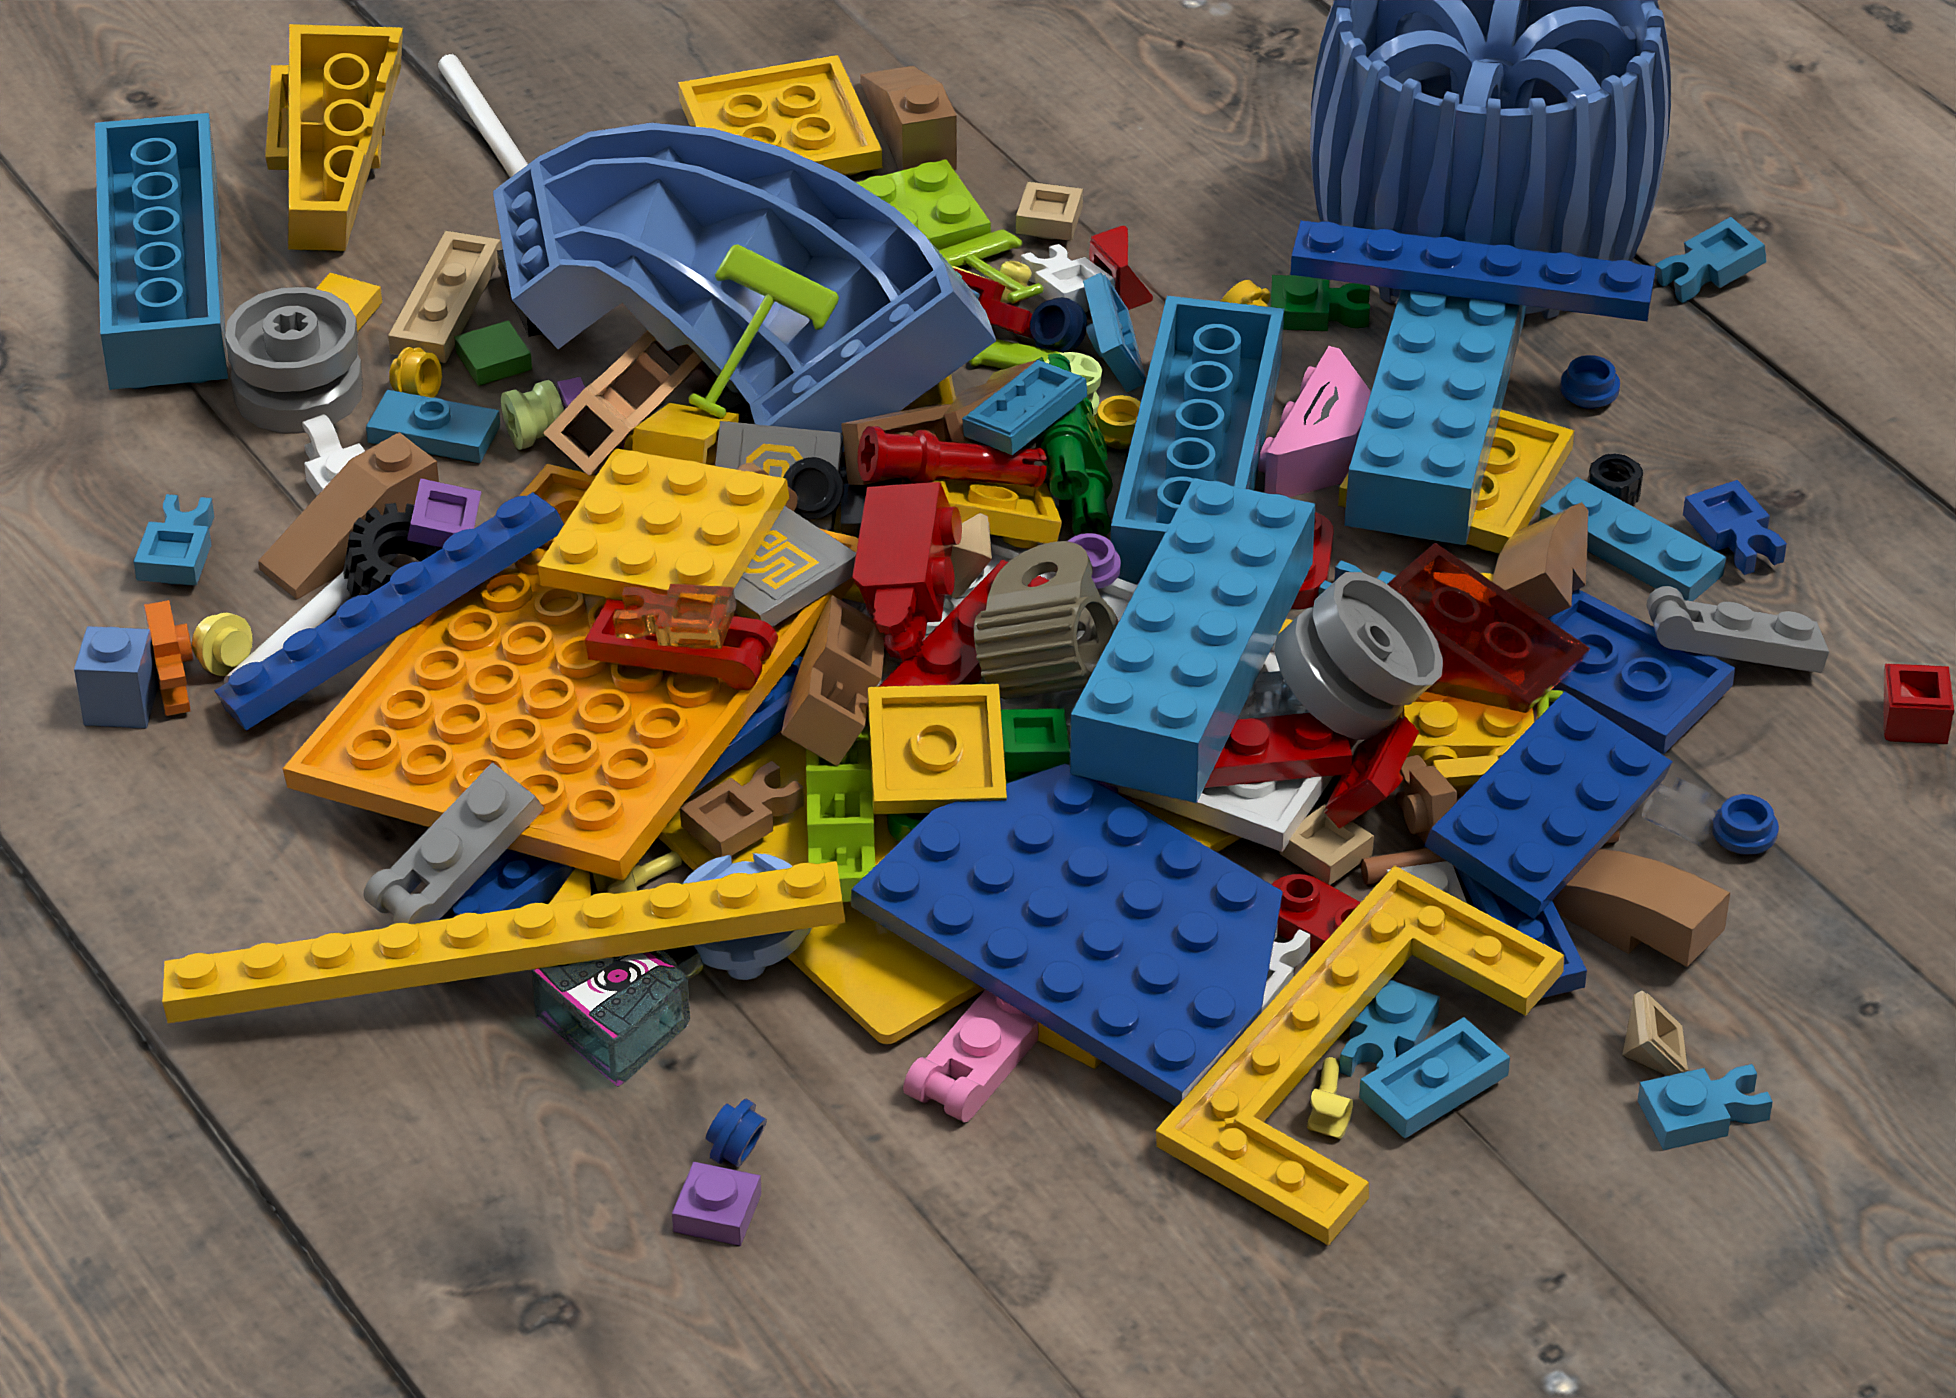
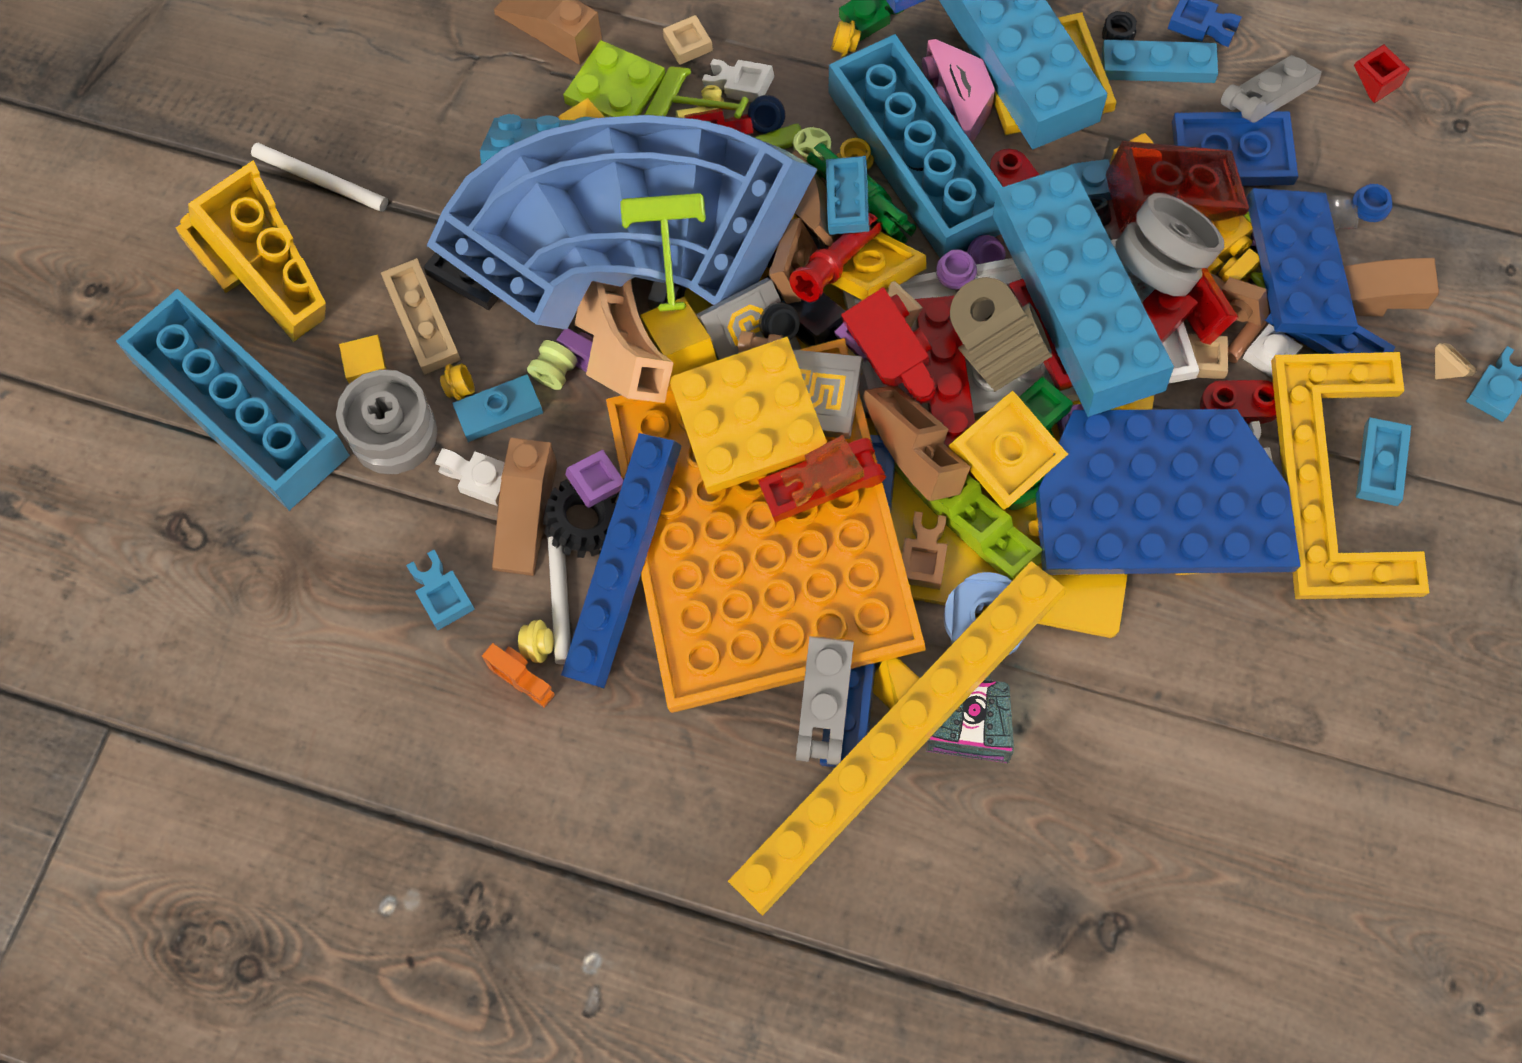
camera: 35 degrees left, 25 degrees up
(116, 677) = (505, 710): medium blue brick -> none
(493, 352) = (481, 335): bright green tile -> none
(716, 1203) = (1132, 799): medium lavender plate -> none
(735, 1132) = (1108, 753): blue plate -> none
(791, 106) = (487, 72): yellow plate -> none
(975, 1052) = (1164, 607): bright pink plate -> none
(1110, 253) = (757, 50): red slope -> none
(1113, 332) = (798, 101): dark azure plate -> none
(1330, 1111) = (1352, 518): light yellow hand -> none
(1389, 1026) = (1338, 446): dark azure plate -> none
(1546, 561) = (1152, 107): medium nougat slope -> none

